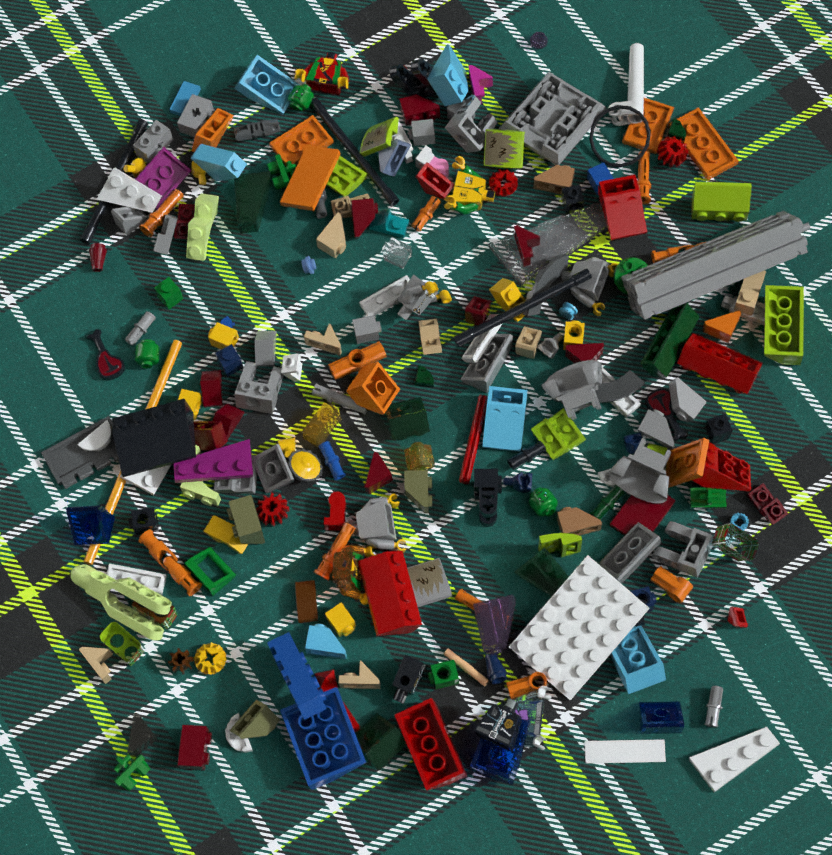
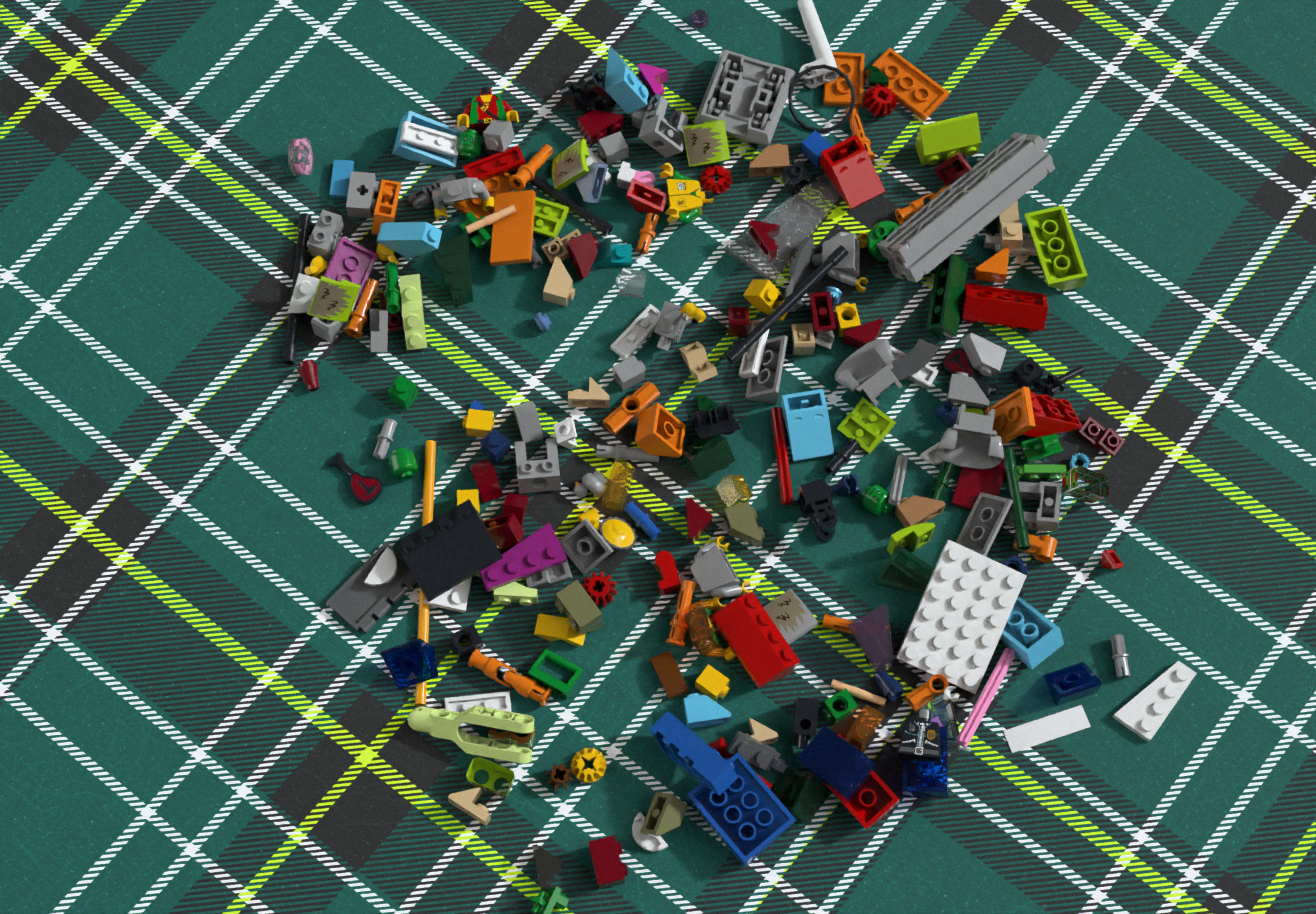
camera: 25 degrees left, 0 degrees up
(135, 197) = (333, 299): none -> slope
(155, 70) = (300, 156): none -> clear head
(188, 205) = (392, 293): none -> green pin
(266, 83) = (429, 139): none -> white tile
(275, 134) = (460, 191): none -> light grey torso
(293, 165) = (494, 217): none -> light nougat piece
(300, 415) = (594, 482): none -> light grey animal
(315, 120) = (495, 164): none -> red tile
(326, 95) = (498, 135): none -> light grey brick
(340, 132) = (527, 171): none -> orange pin
(355, 692) = (756, 752): none -> dark grey hinge
(419, 724) = (837, 763): none -> clear blue slope
(431, 397) = (721, 424): none -> black hinge
(460, 699) = (864, 727): none -> clear orange slope
(552, 322) = (822, 312): none -> dark red slope
(567, 490) = (898, 480): none -> light grey axle
(575, 706) = (985, 697): none -> bright pink axle
(660, 567) = (1021, 532): none -> dark green piece
(694, 518) = (1035, 472): none -> bright green hinge
(716, 227) = (952, 167): none -> dark red slope
(745, 444) = (1057, 383): none -> black piece

